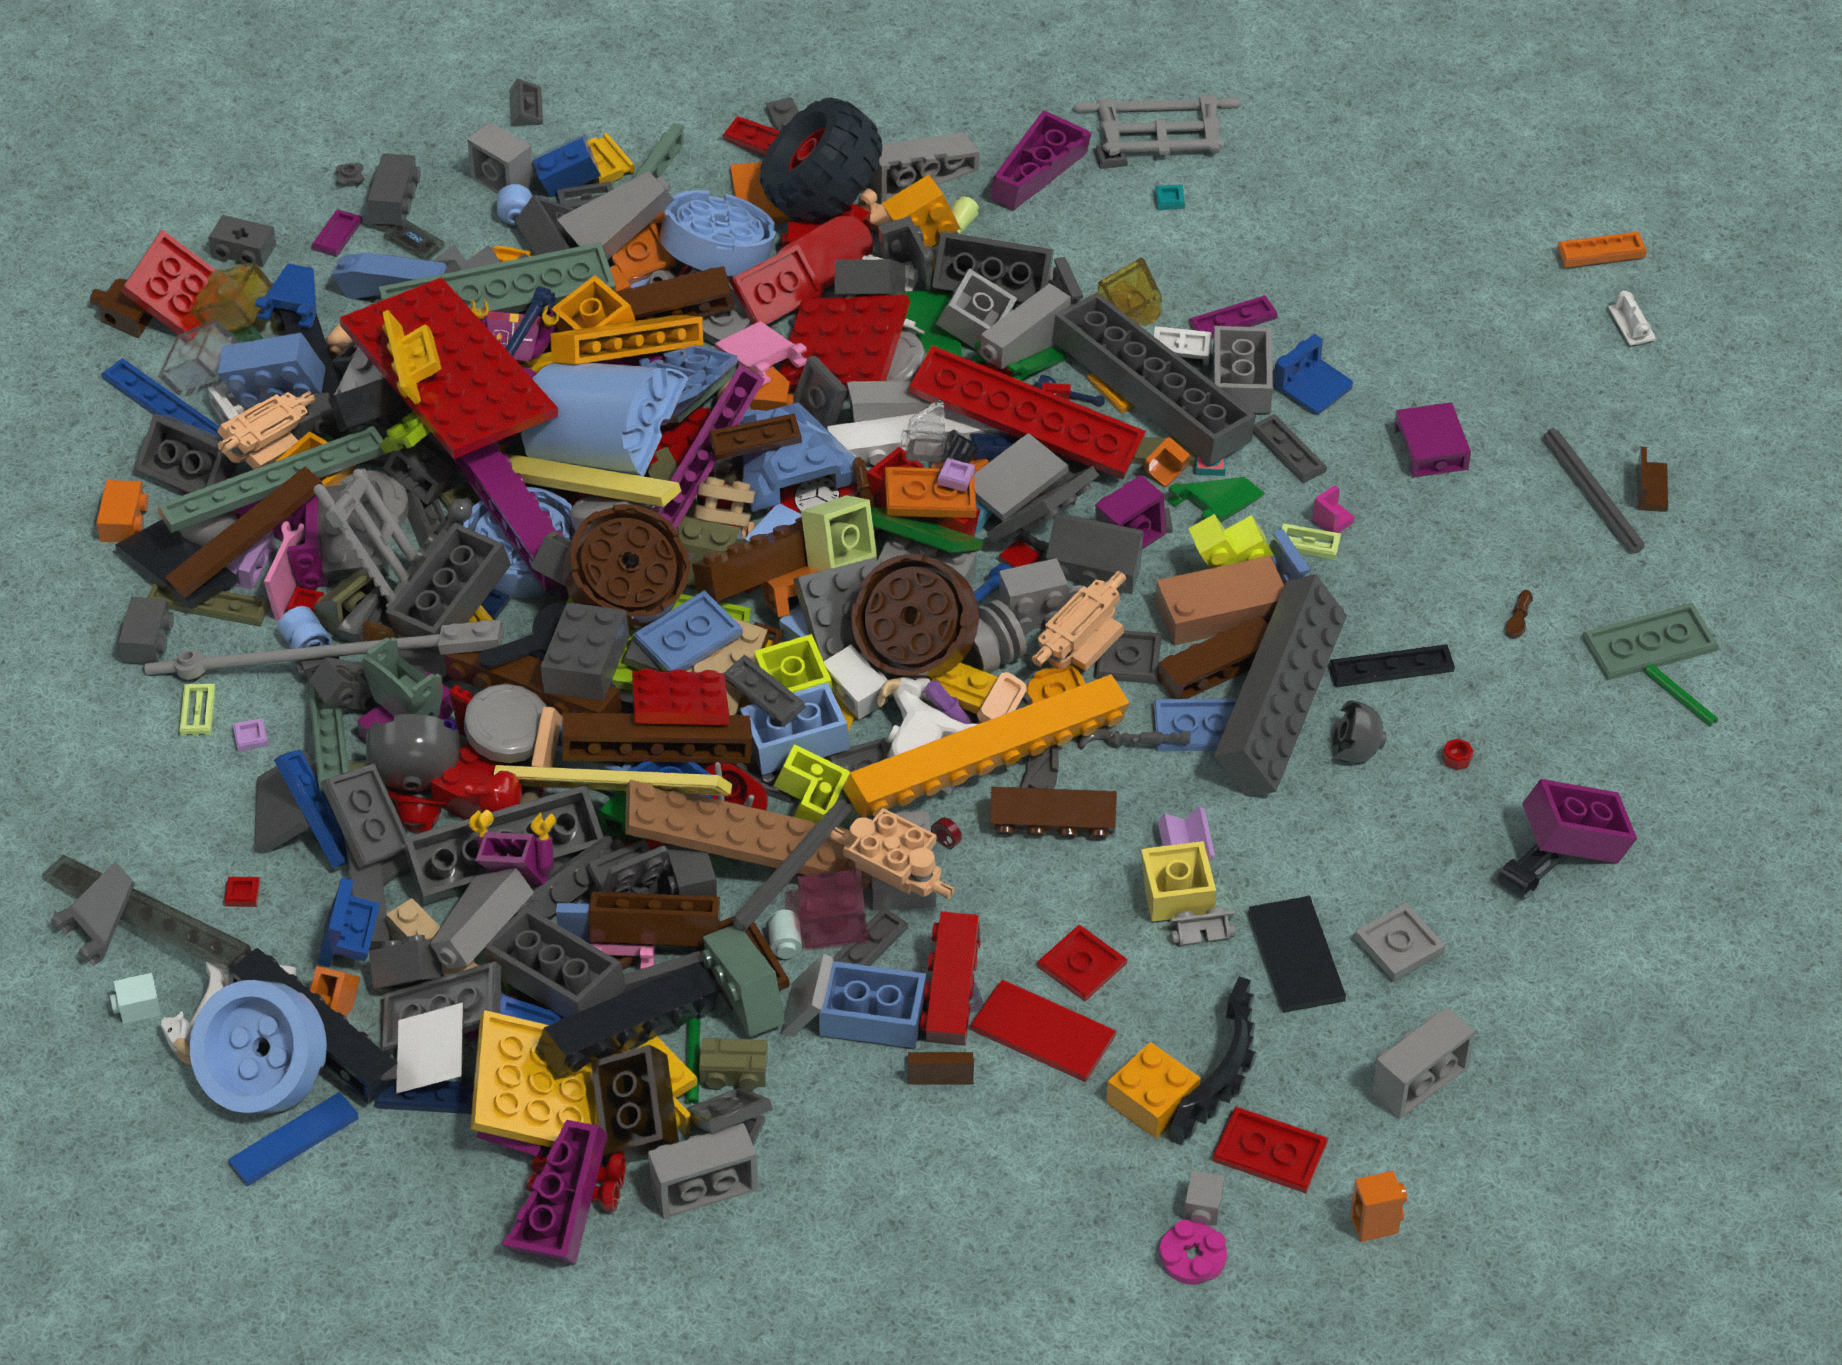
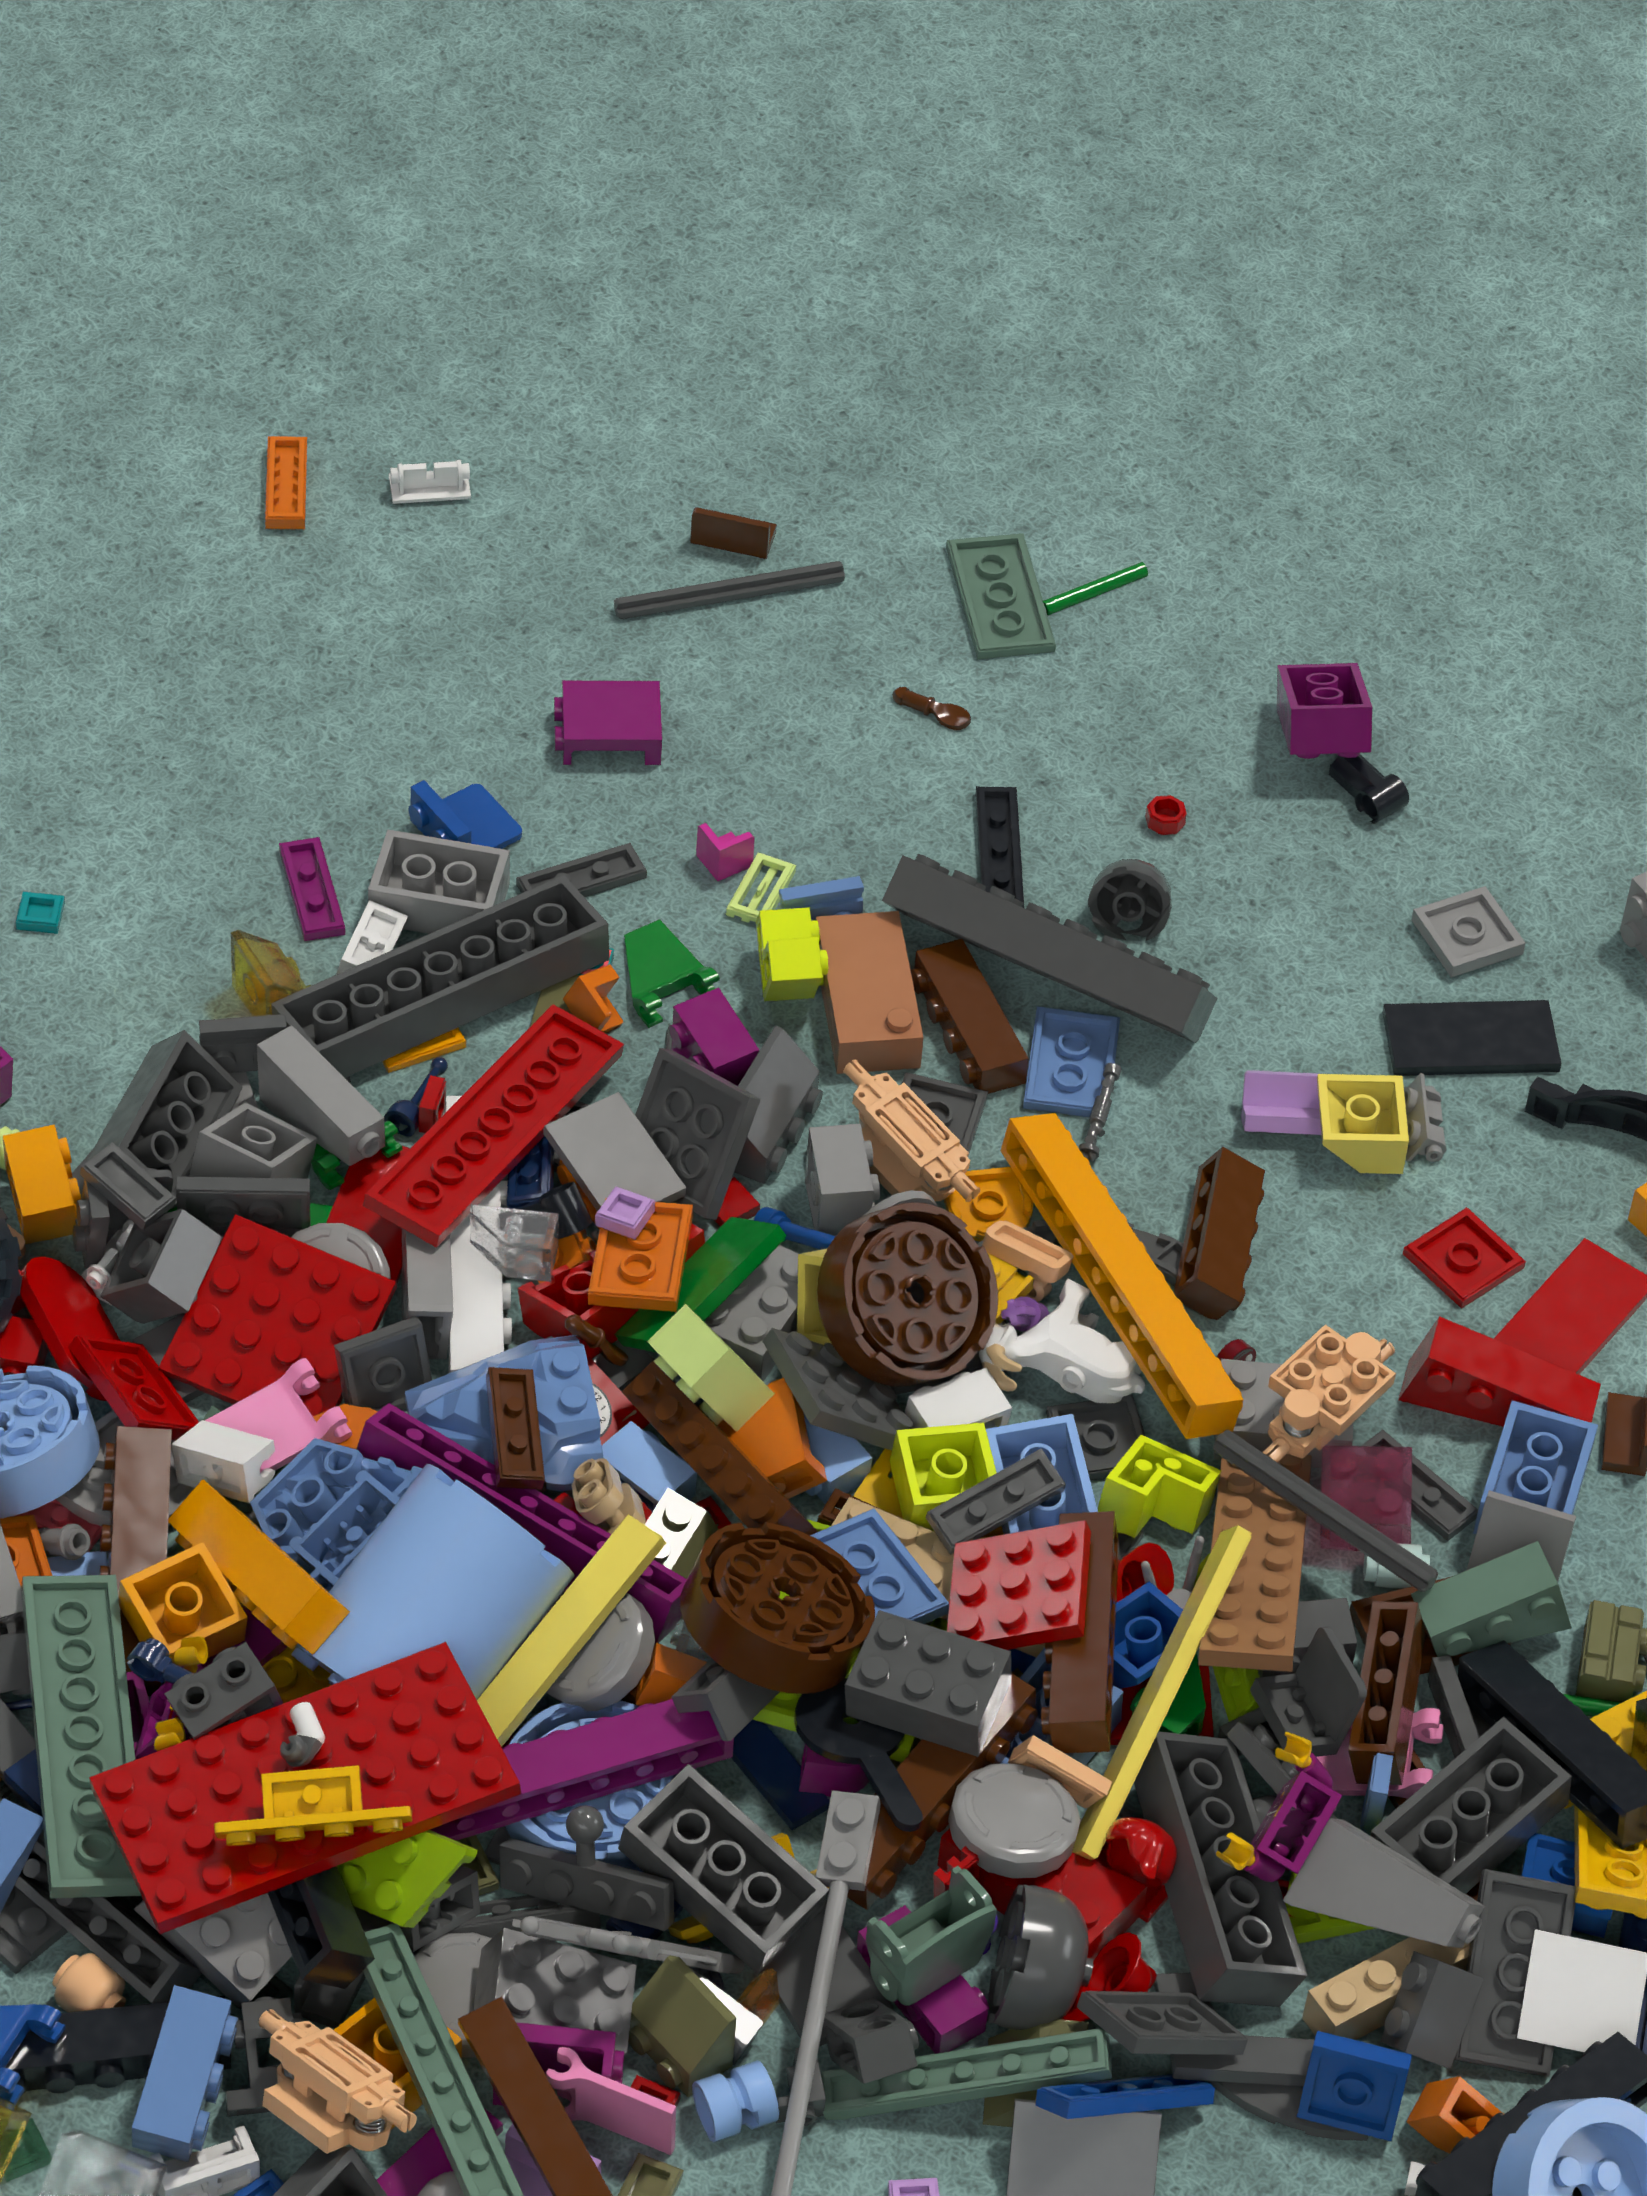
camera: 85 degrees left, 0 degrees up
(469, 352) = (308, 1738): none -> arm
(508, 322) = (223, 1692): none -> dark grey brick
(723, 325) = (224, 1459): none -> white hinge
(905, 235) = (127, 1186): none -> dark grey tile
(925, 303) = (271, 1202): none -> dark grey tile

